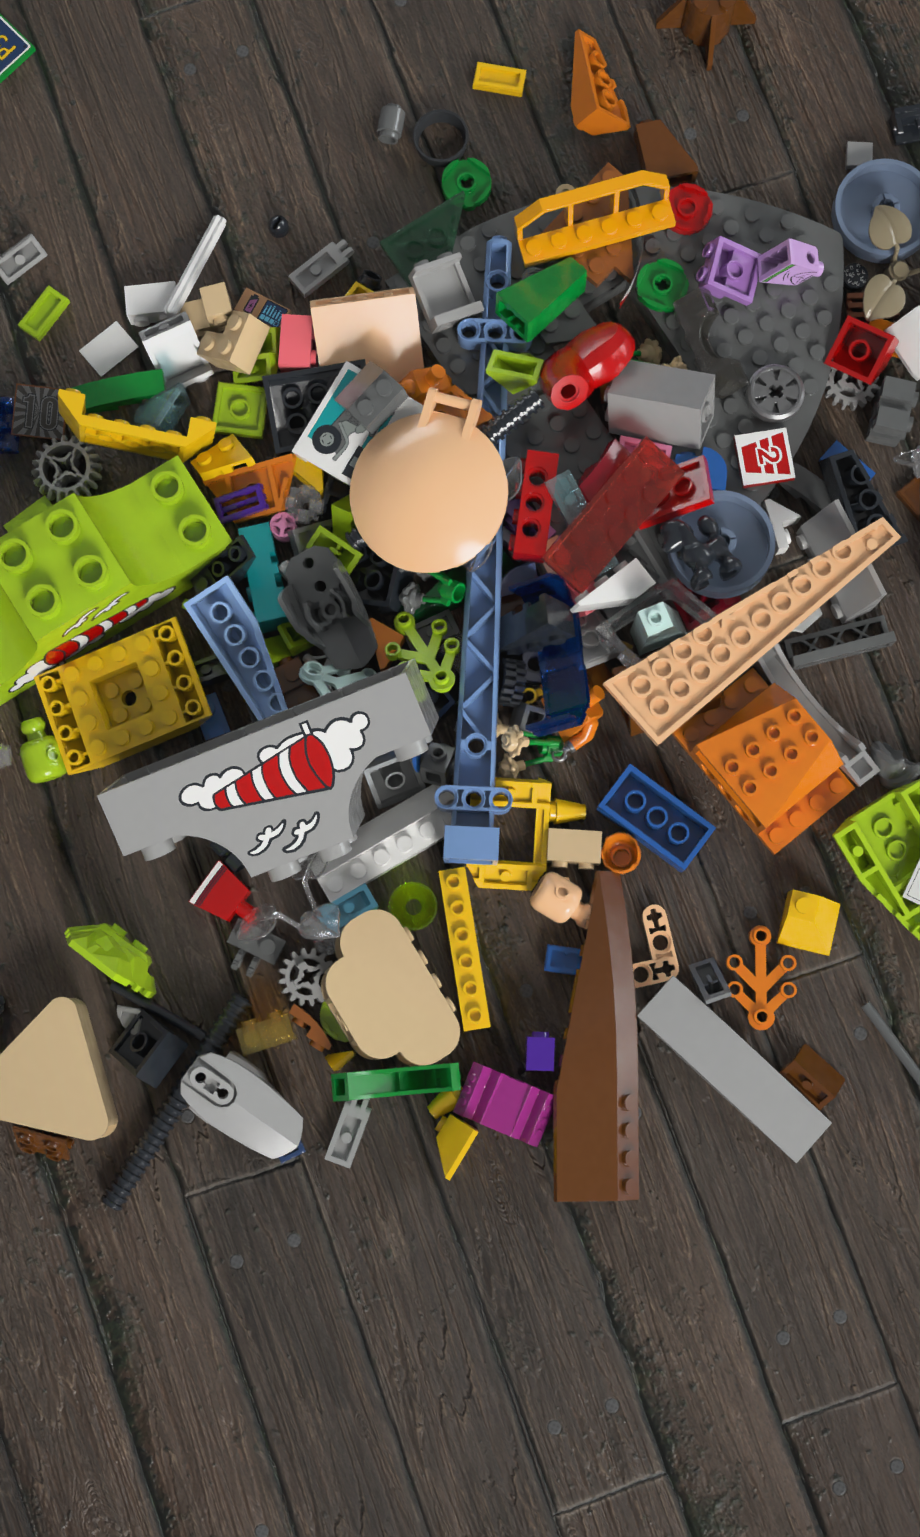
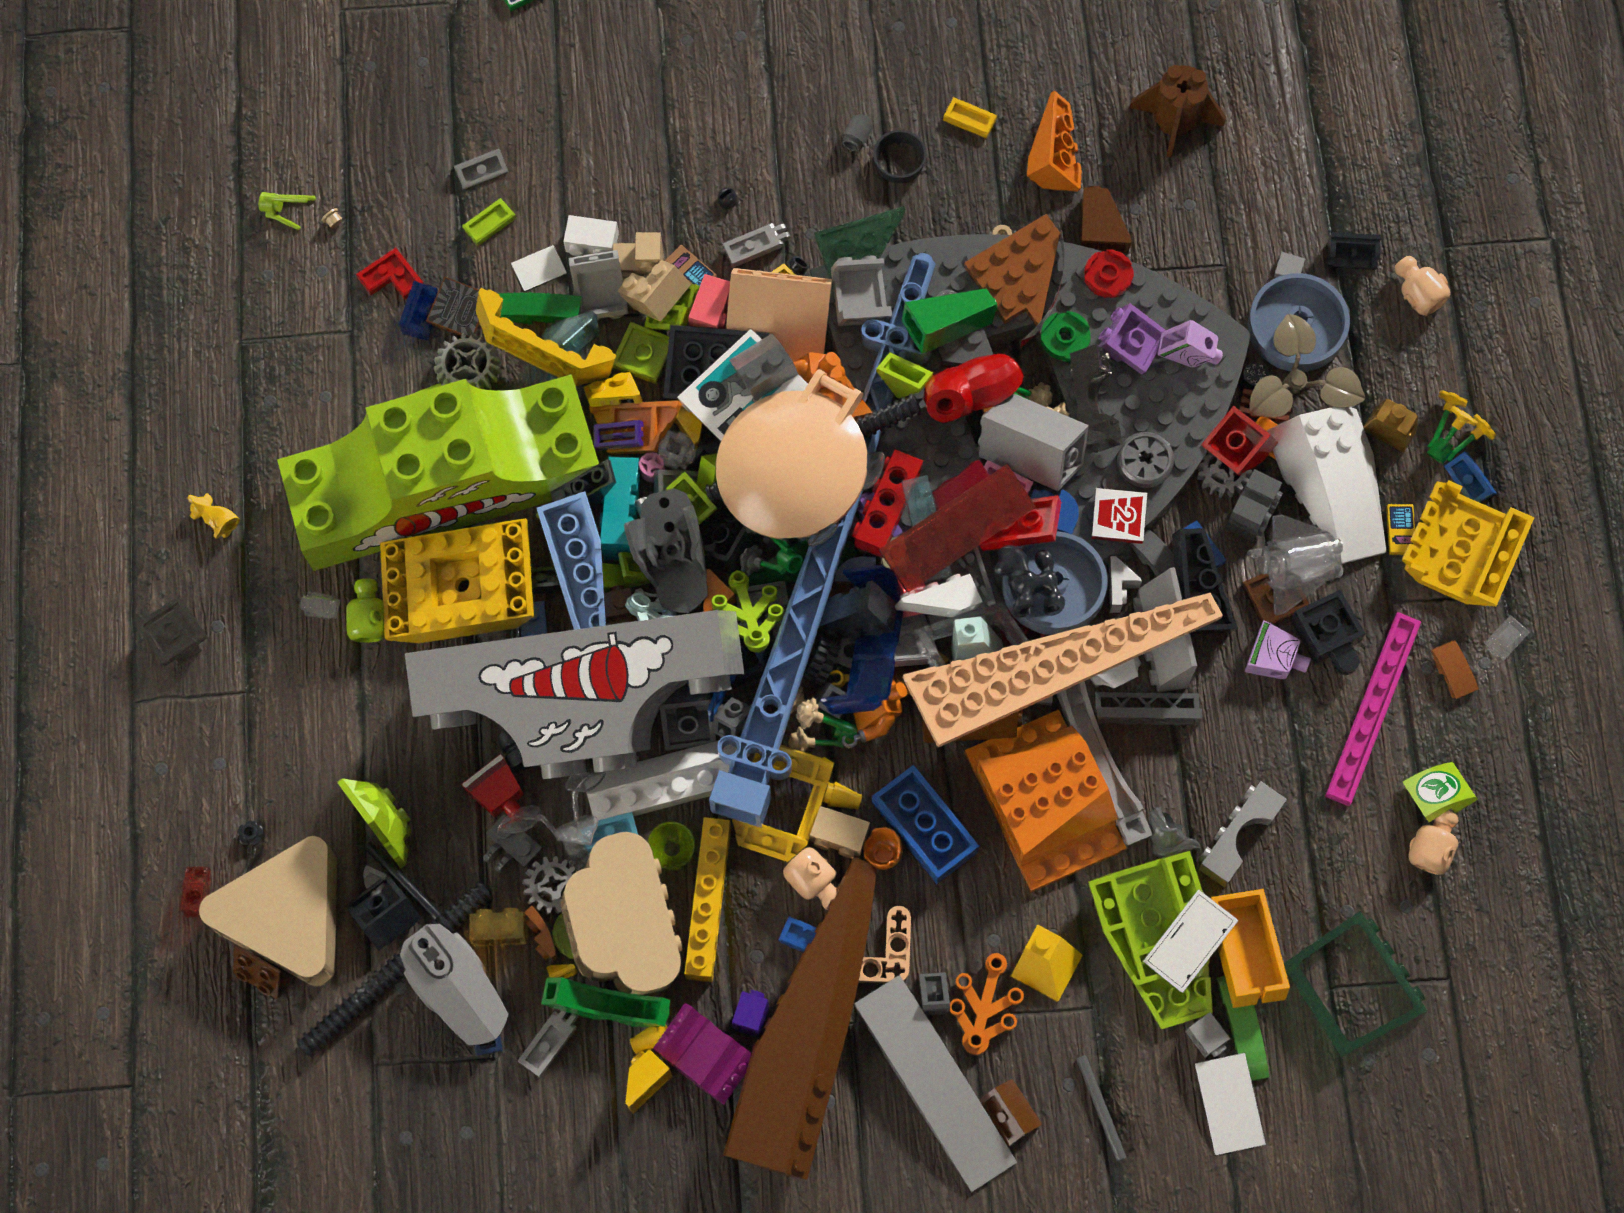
camera: 15 degrees right, 10 degrees down
(195, 266) = (634, 218): white axle -> none
(464, 170) = (914, 190): green plate -> none
(598, 231) = (1016, 272): light orange plate -> none

